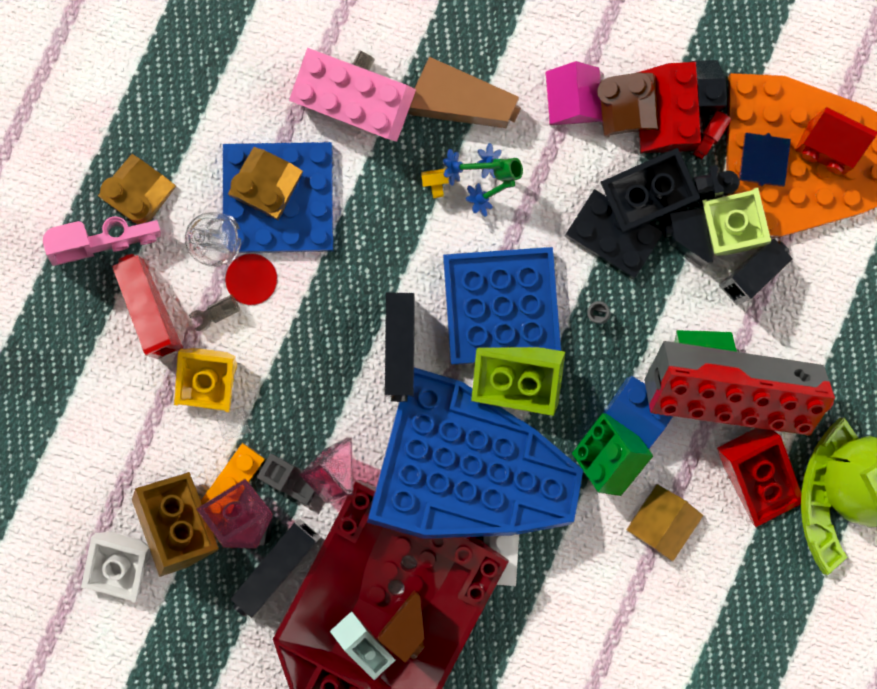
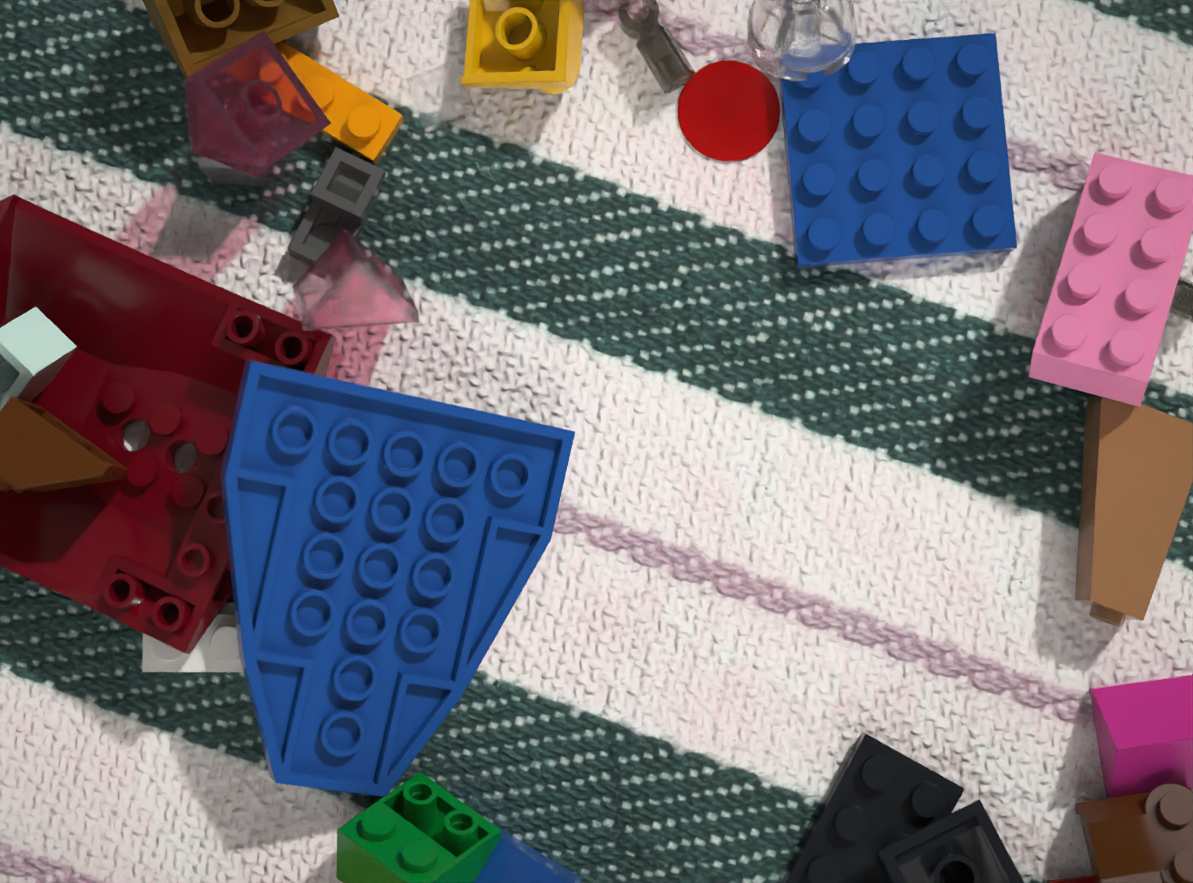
camera: 85 degrees right, 0 degrees up
(265, 182) = (922, 120): pearl gold slope -> none
(275, 568) = (160, 196): black slope -> none
(399, 346) = (610, 407): black slope -> none
(435, 179) = (957, 462): yellow tile -> none
(500, 301) = (709, 612): blue plate -> none
(502, 169) = (988, 594): plant -> none
(519, 378) = (561, 655): lime slope -> none
(599, 307) = (719, 815): dark grey hinge -> none

